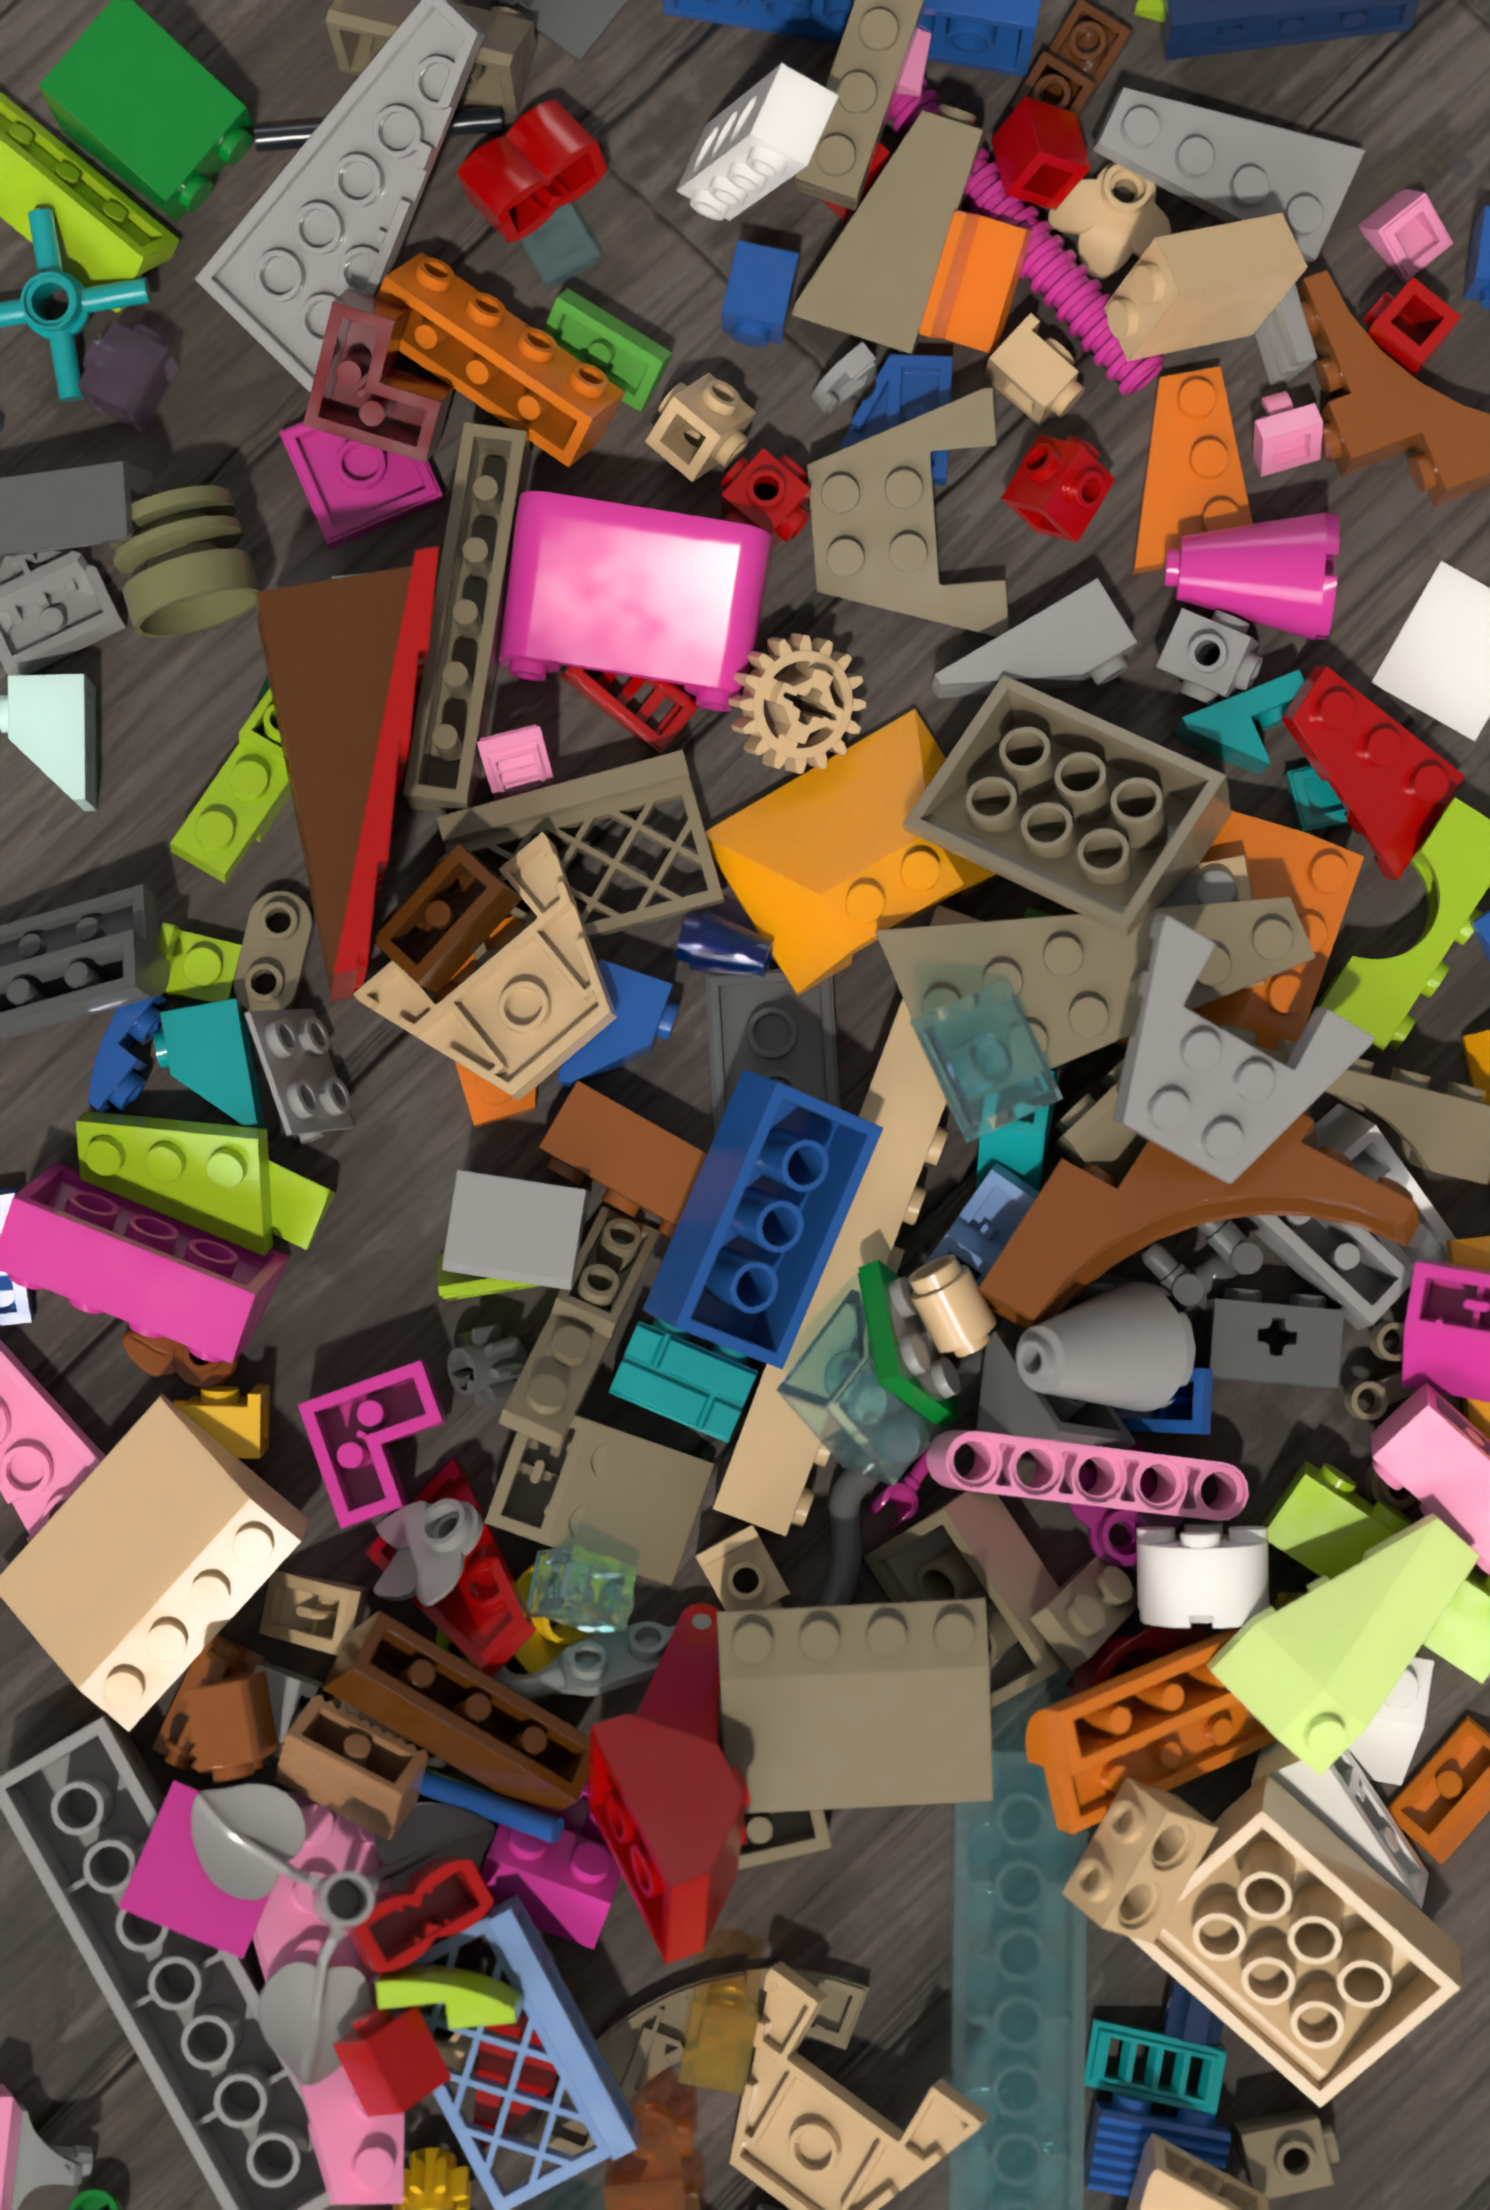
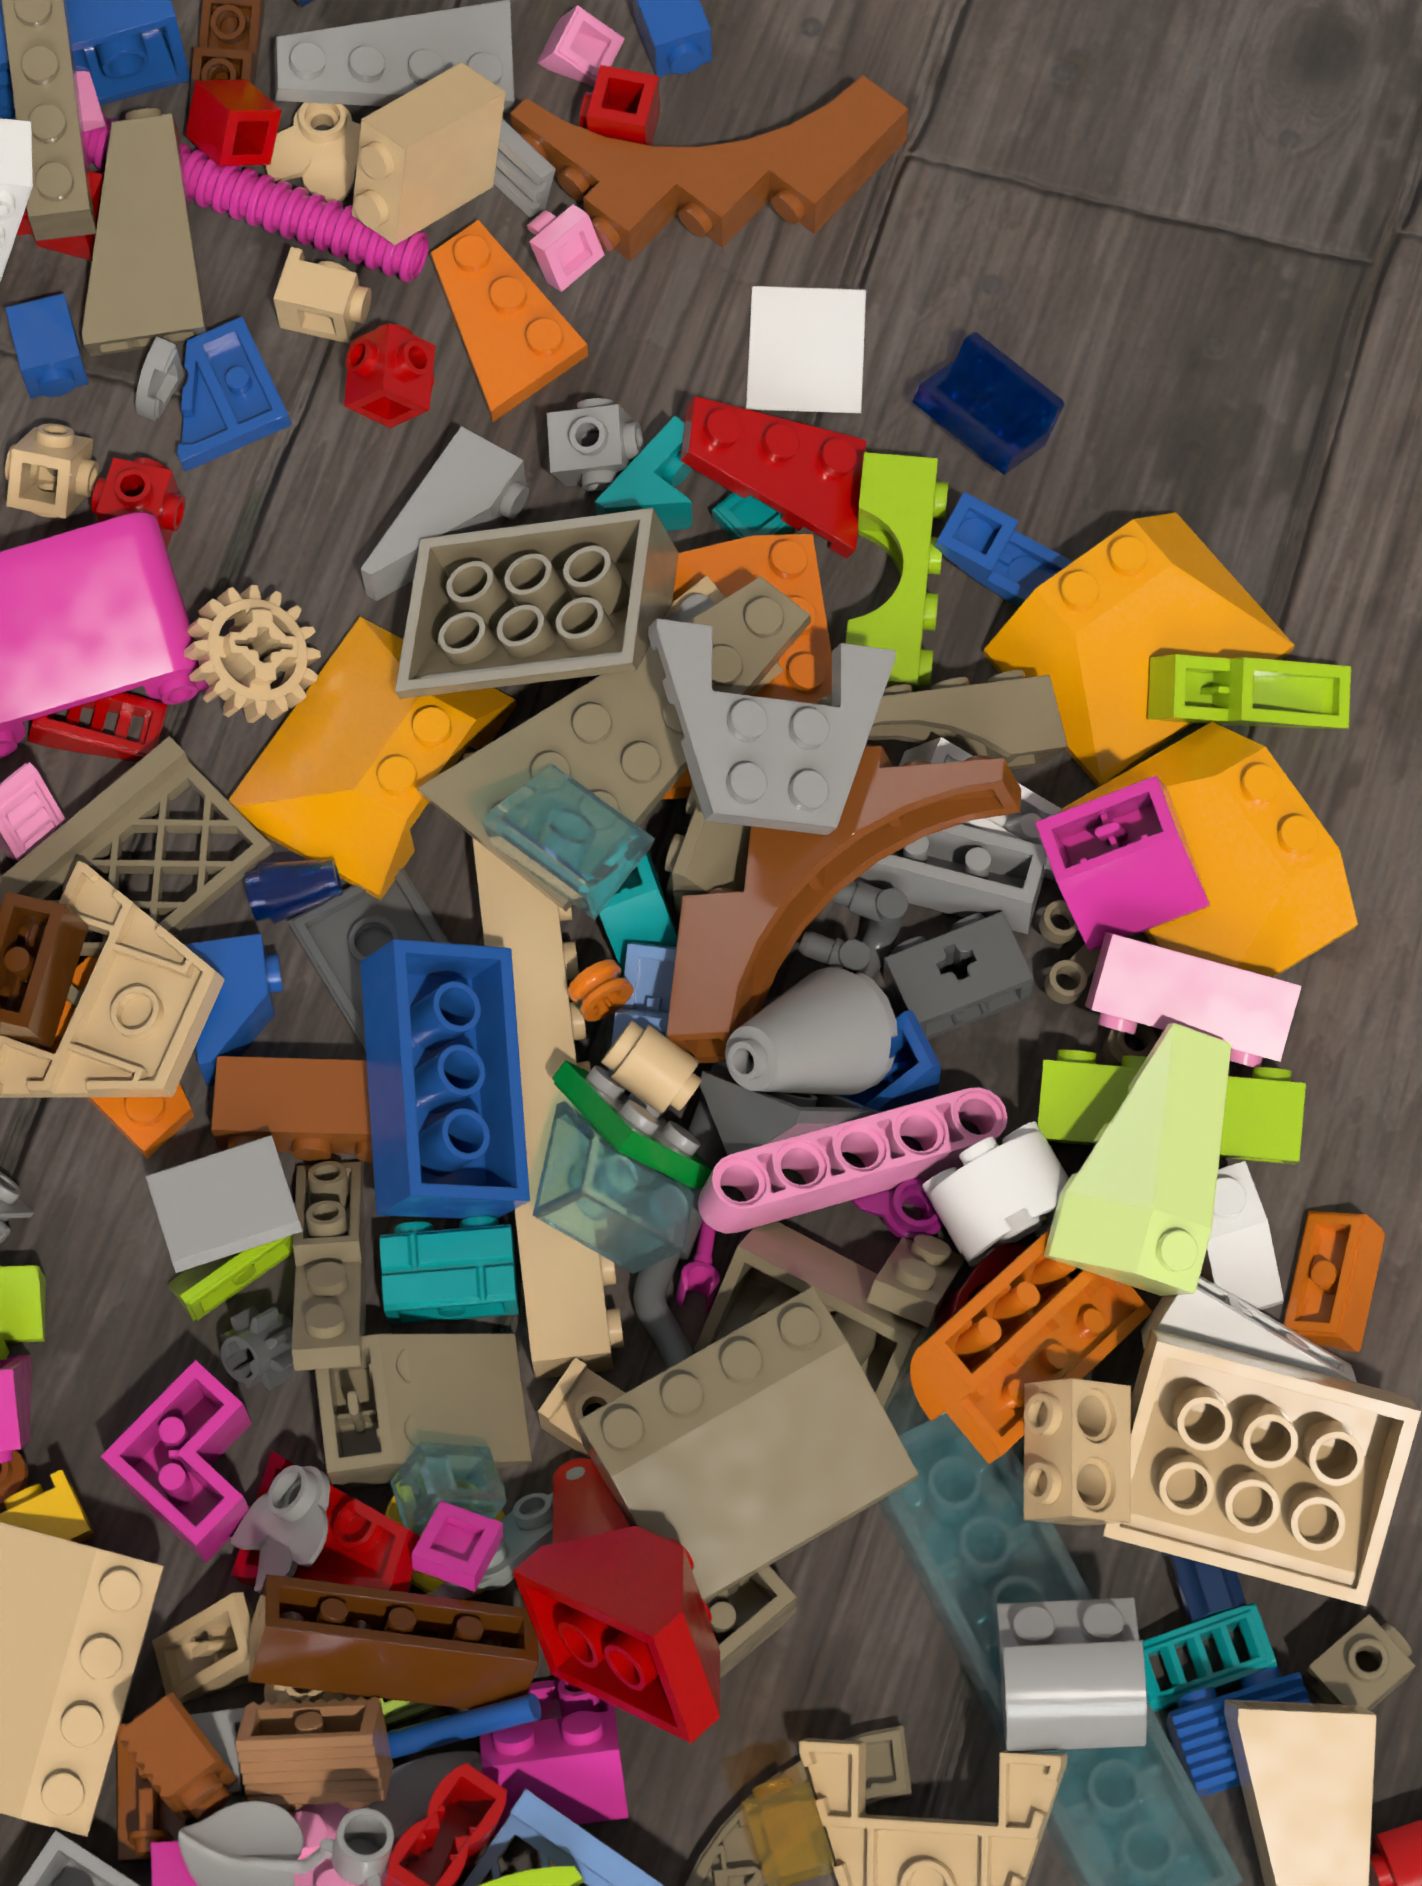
camera: 25 degrees left, 15 degrees down
(560, 1659) = (457, 1546): none -> dark pink tile
(879, 520) = (247, 475): dark tan wing -> none
(945, 1200) = (600, 990): none -> orange bush
(975, 281) = (230, 246): orange panel -> none
(1030, 2051) = (1071, 1675): none -> light grey brick
(1262, 572) = (604, 352): dark pink cone -> none

